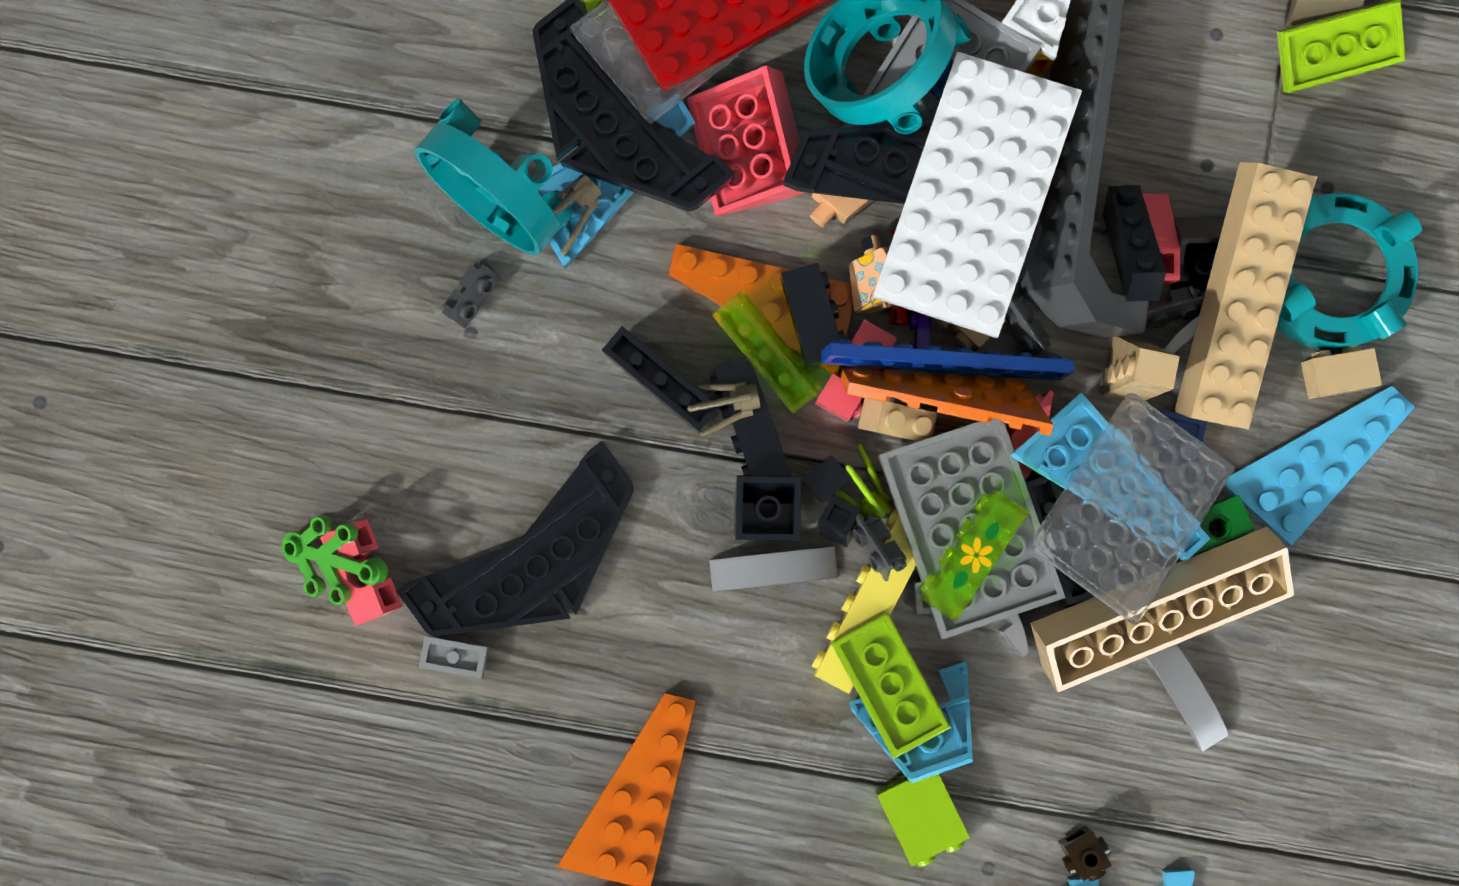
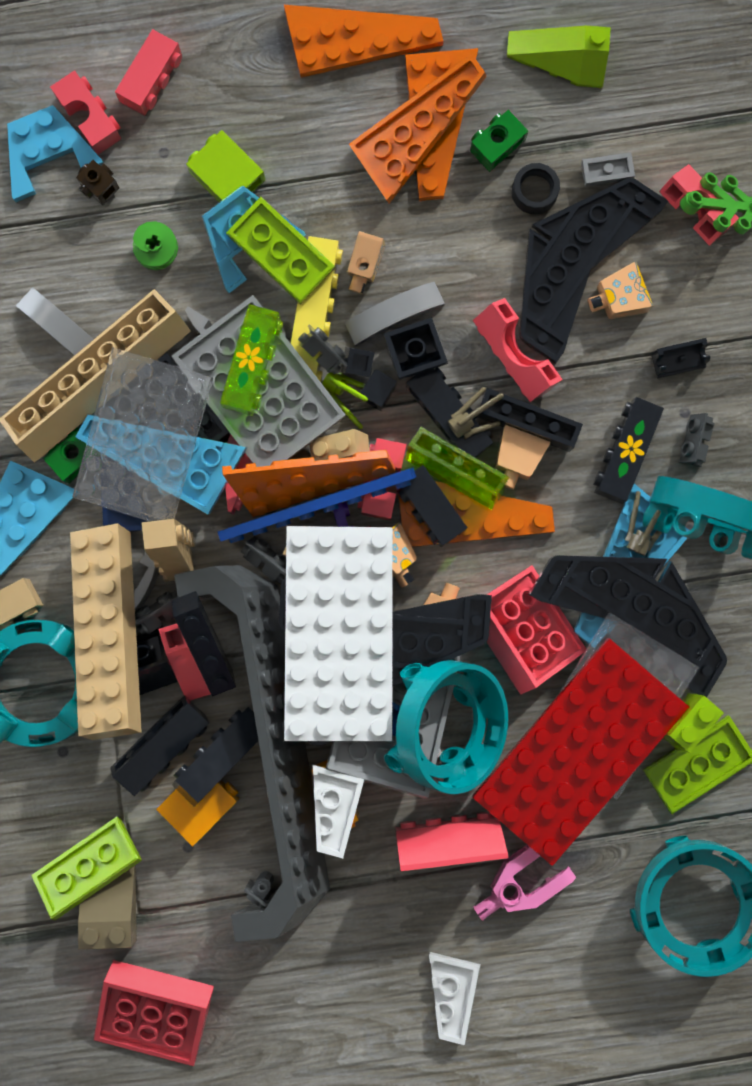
camera: 160 degrees right, 0 degrees up
(448, 821) = (566, 52): none -> lime wedge
(453, 396) = (680, 358): none -> black hinge
(494, 496) = (622, 294): none -> light nougat torso
(535, 682) = (540, 170): none -> black tyre
(554, 739) = (492, 153): none -> green brick
(555, 307) = (629, 450): none -> black brick
(638, 434) = (498, 327): none -> coral arch
(686, 781) = (405, 136): none -> orange wing
(687, 344) = (519, 454): none -> light nougat torso
(782, 650) = (366, 250): none -> light nougat torso
(1040, 766) = (147, 236): none -> bright green piece
(1158, 109) = (219, 758): none -> black brick
(1191, 74) = (198, 820): none -> light orange brick
(1216, 152) = (159, 746): none -> black brick

